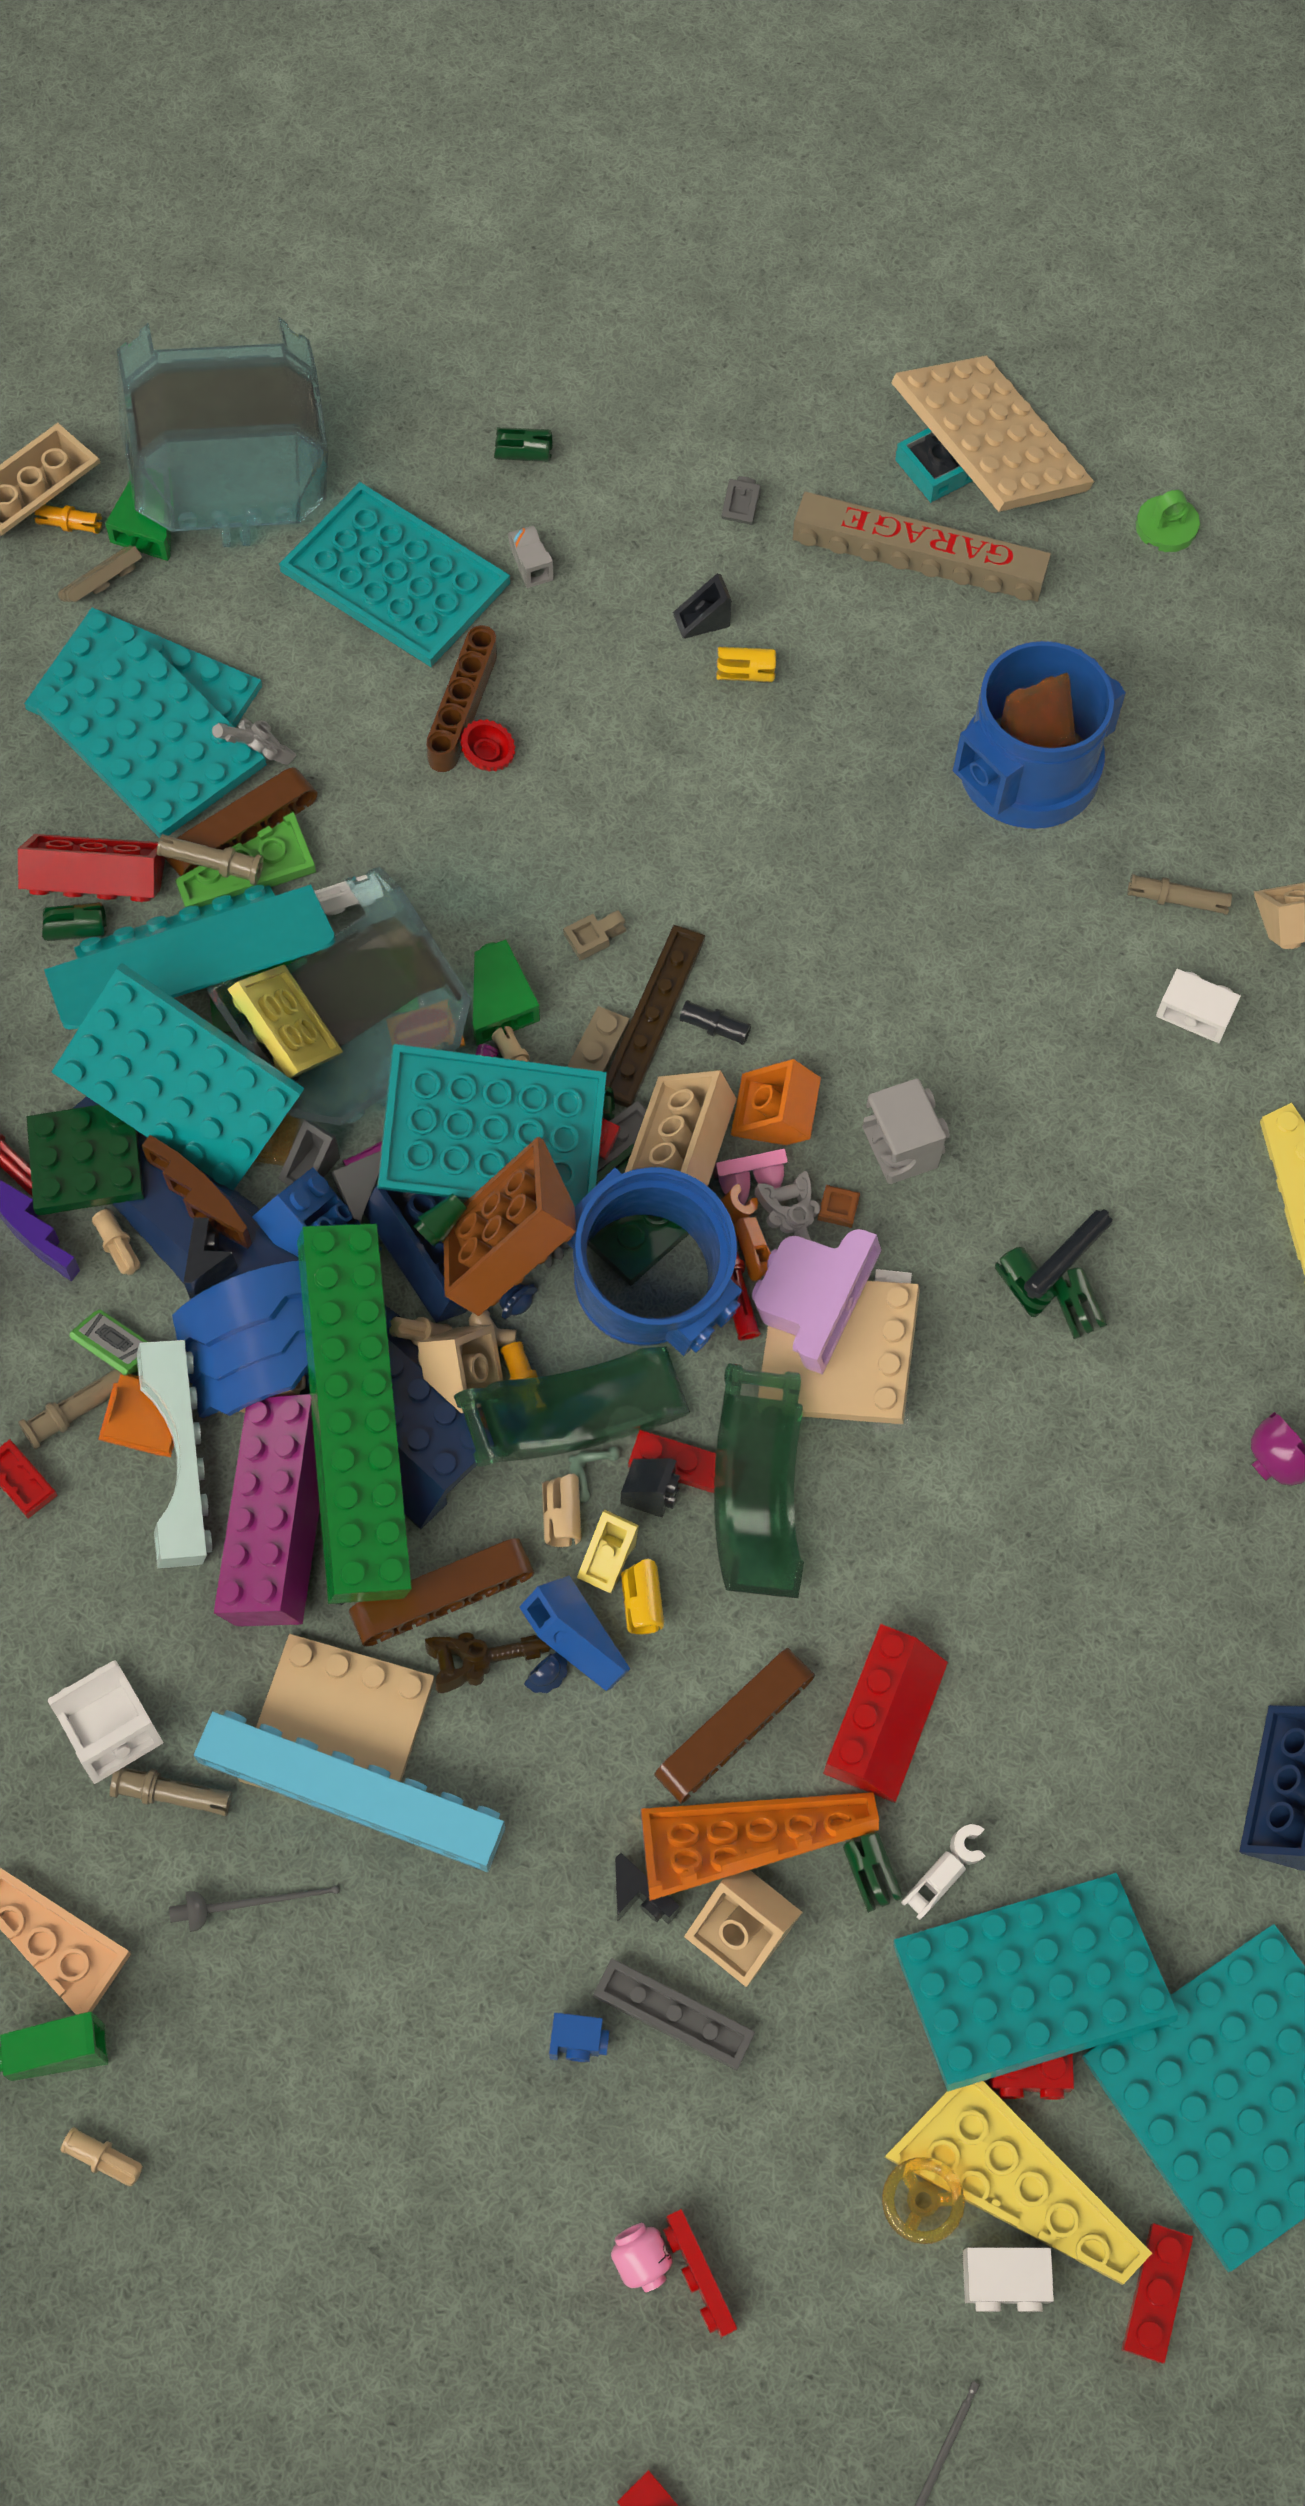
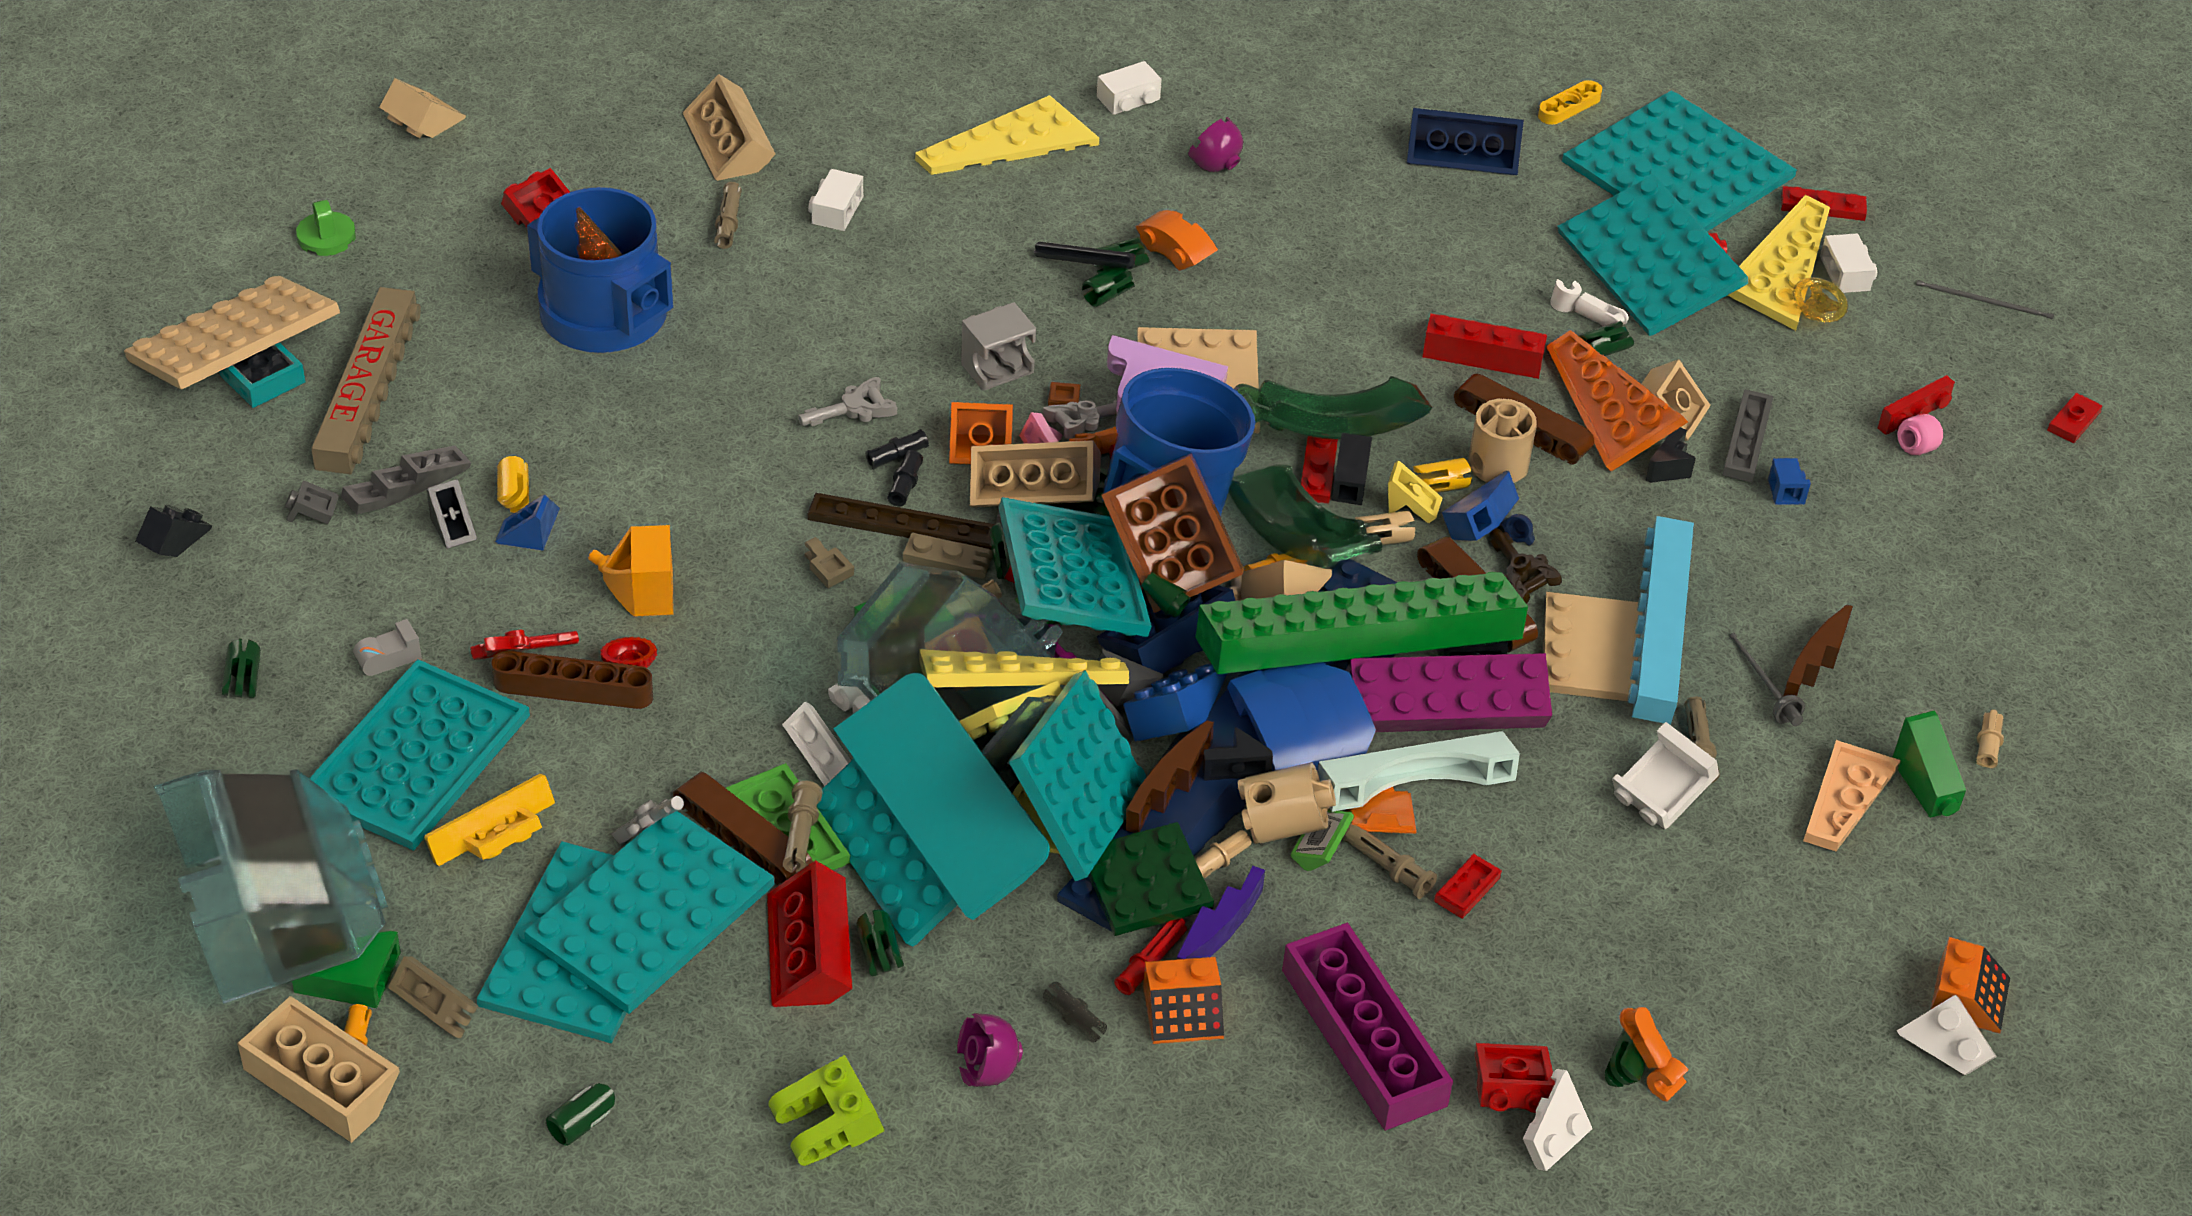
camera: 100 degrees left, 20 degrees down
(141, 1298) = (1286, 802): none -> tan cylinder
(279, 1986) = (1819, 651): none -> reddish brown slope
(288, 629) = (494, 824): none -> yellow bracket
(349, 1031) = (1010, 669): none -> light yellow wing
(511, 642) = (517, 641): none -> red piece
(587, 759) = (640, 570): none -> light orange piece
(668, 1668) = (1502, 439): none -> tan cylinder
(688, 680) = (529, 525): none -> blue slope
(715, 392) = (171, 530): none -> black slope
(763, 1020) = (896, 449): none -> black pin
(770, 579) = (401, 482): none -> flat silver slope
(840, 986) = (854, 405): none -> light grey piece
(1100, 1368) = (1176, 239): none -> orange brick
(1199, 711) = (529, 199): none -> red plate

